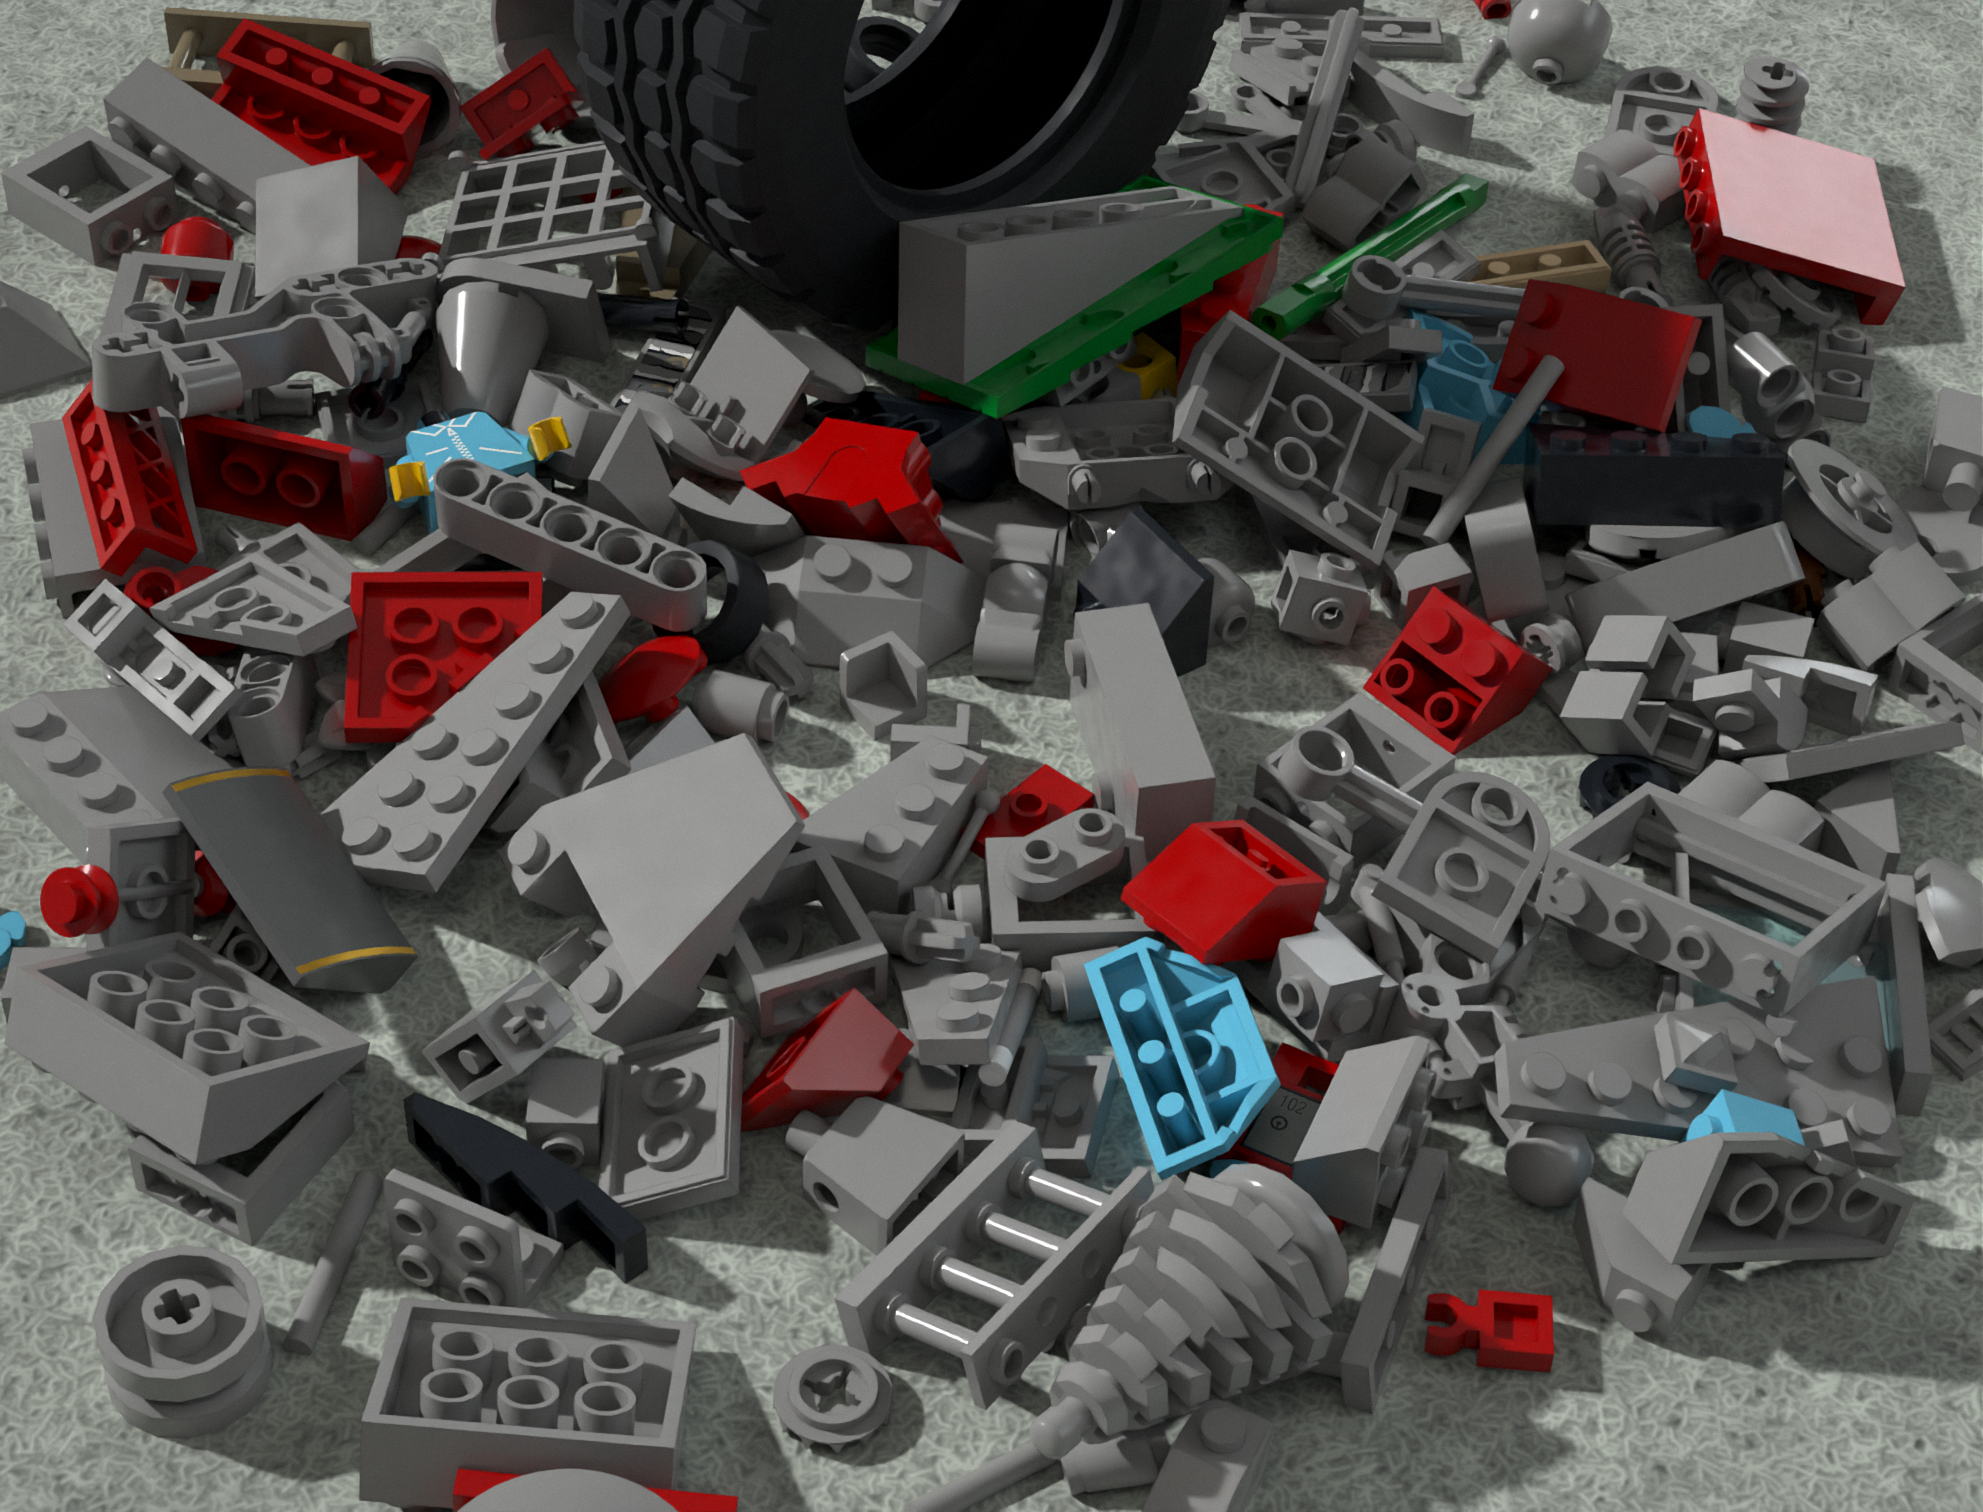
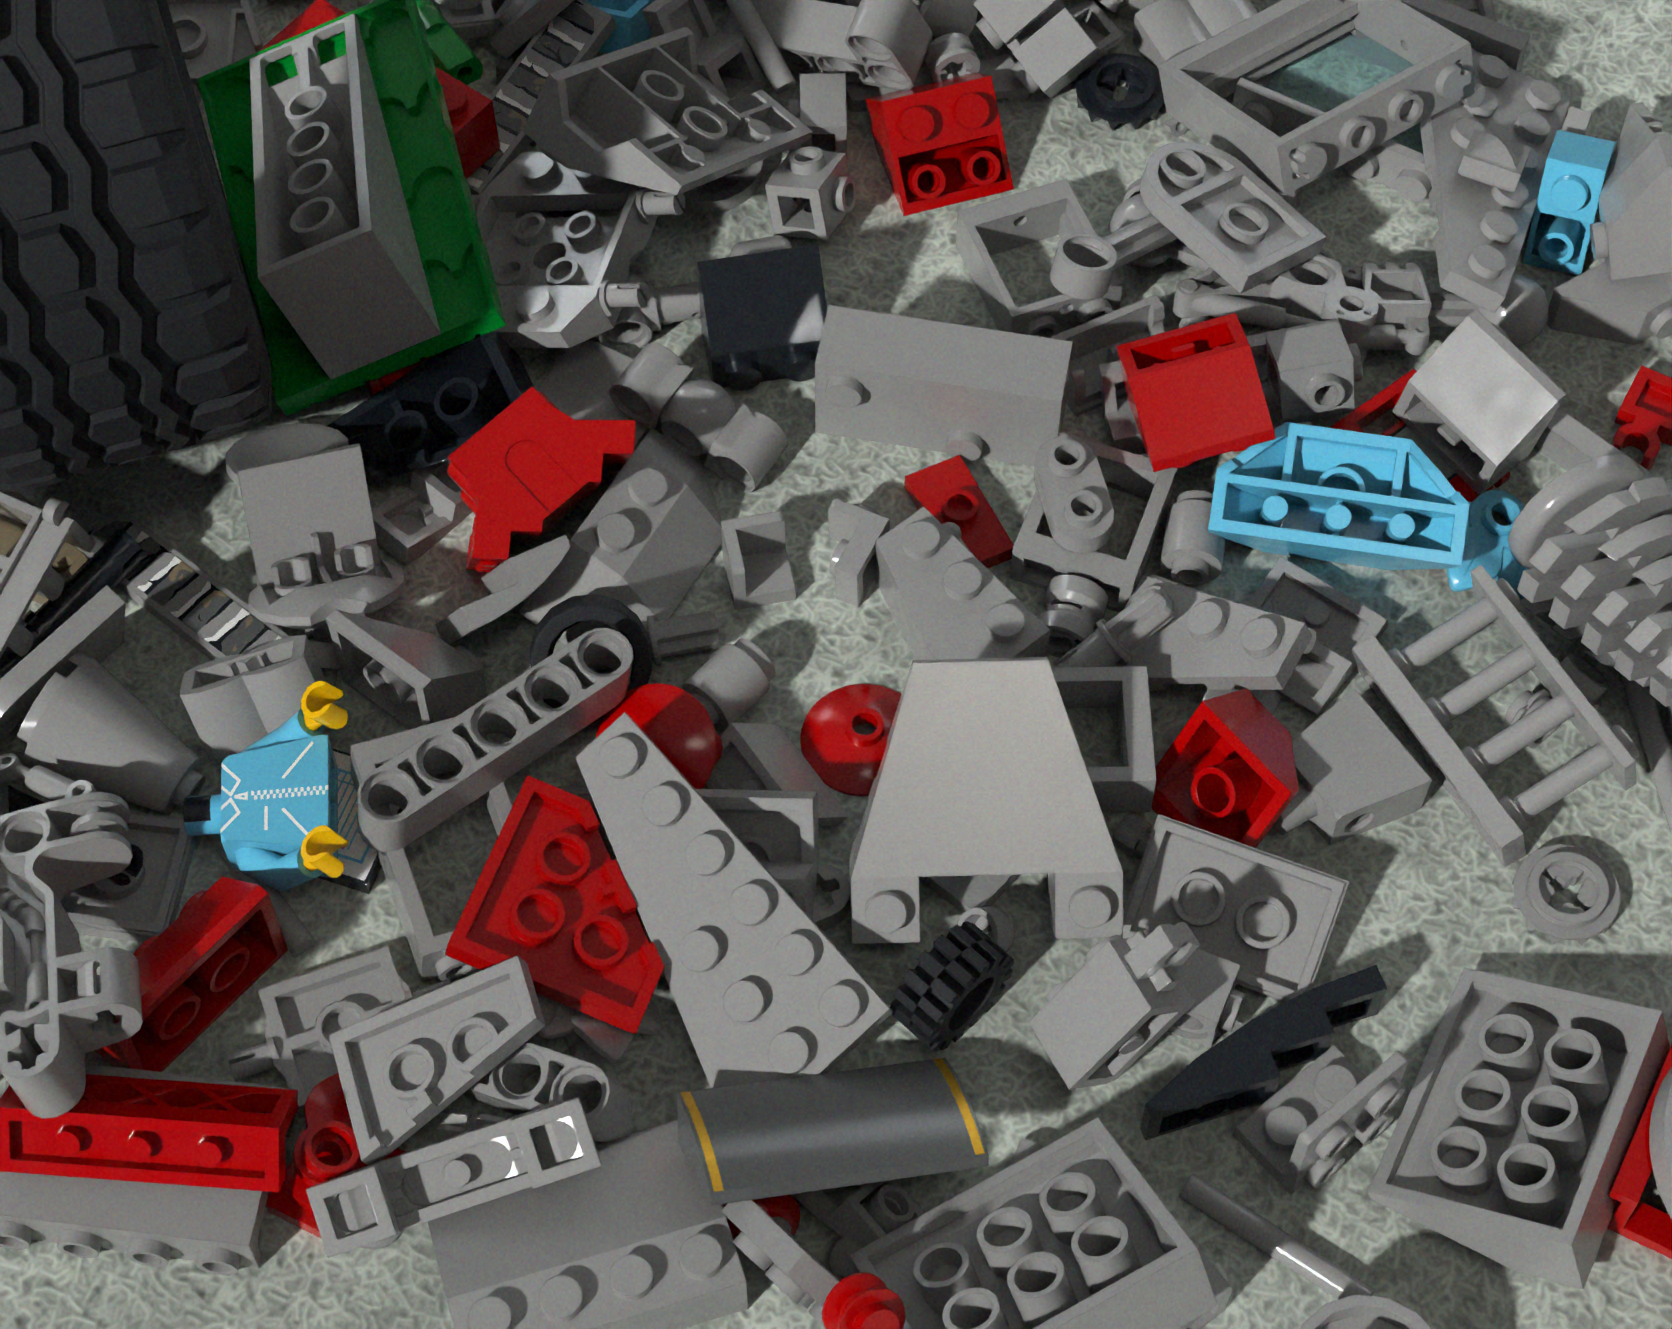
camera: 65 degrees left, 15 degrees up
(483, 928) = (952, 986): none -> black tyre

